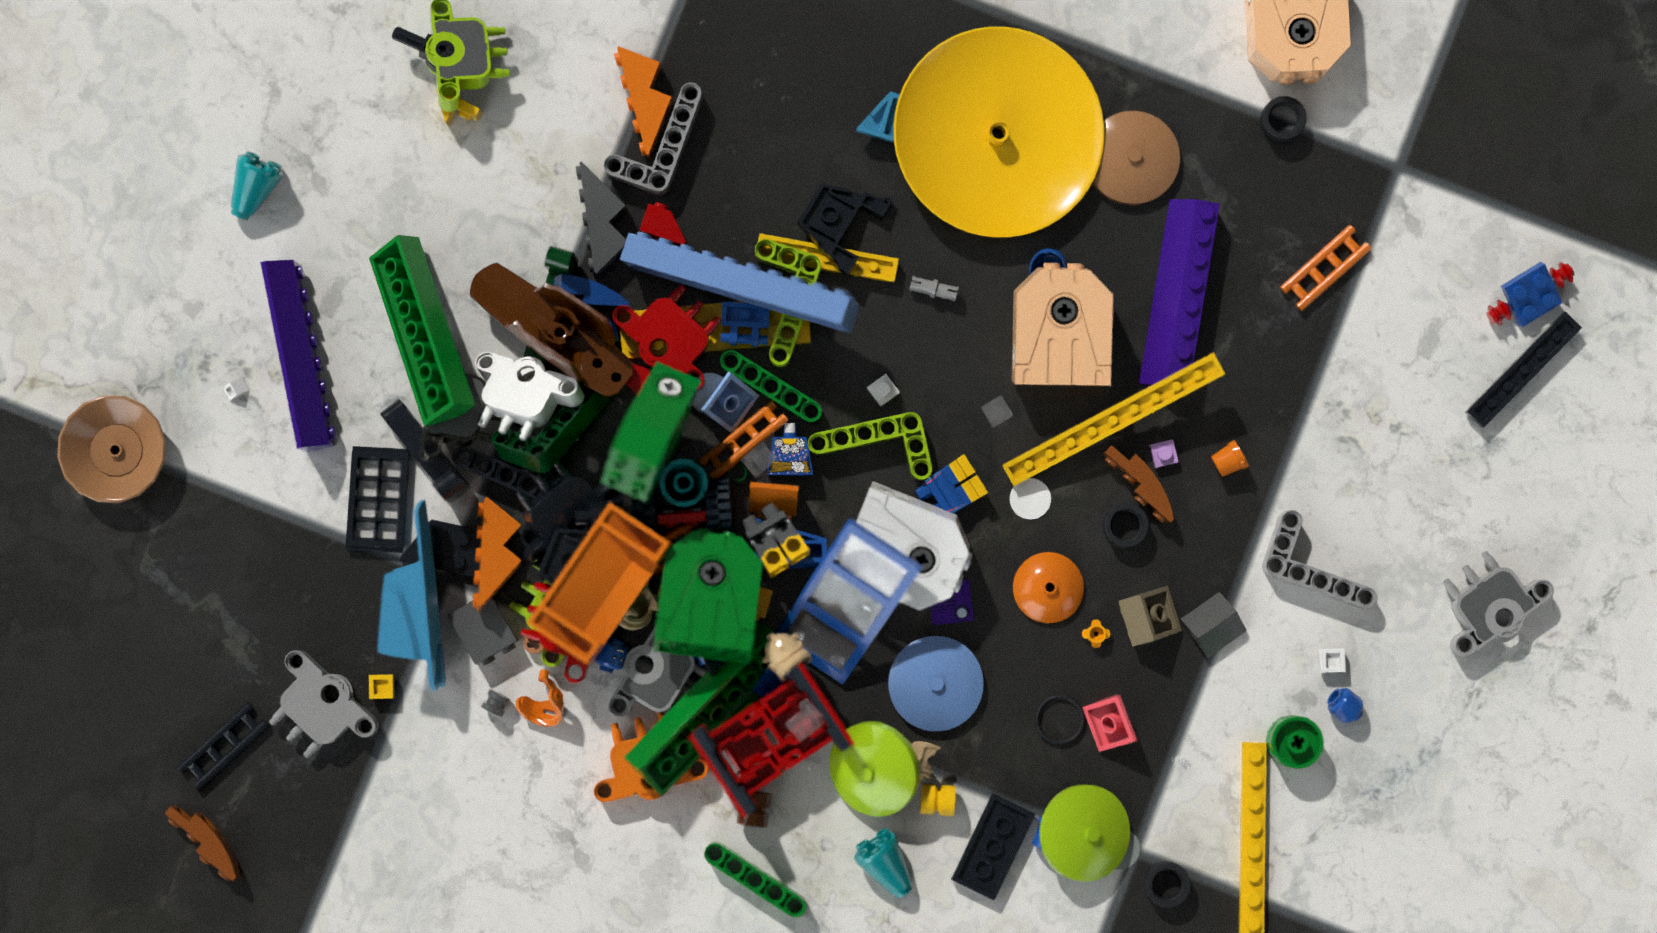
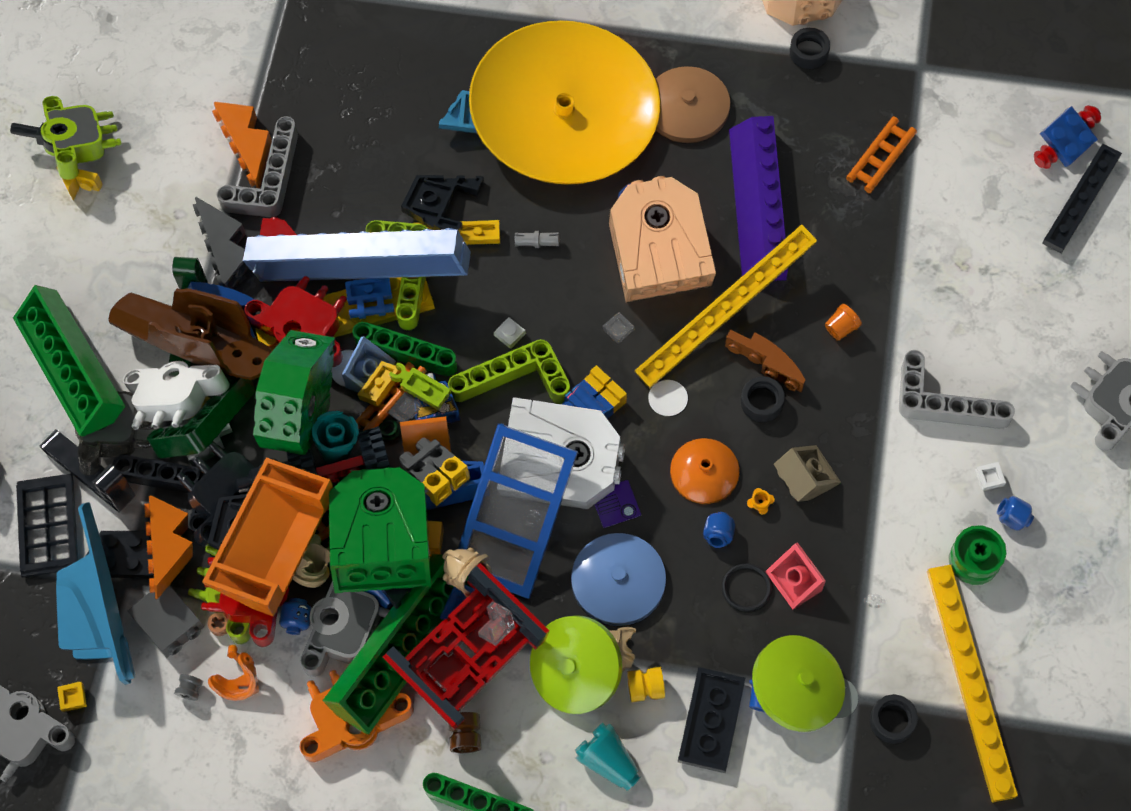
camera: 10 degrees left, 20 degrees down
(738, 424) = (378, 384): none -> yellow plate
(780, 442) = (421, 386): none -> lime plate
(1047, 656) = (719, 529): none -> blue head
(1163, 453) = (781, 333): lavender plate -> none
(1214, 624) = (870, 469): dark grey slope -> none

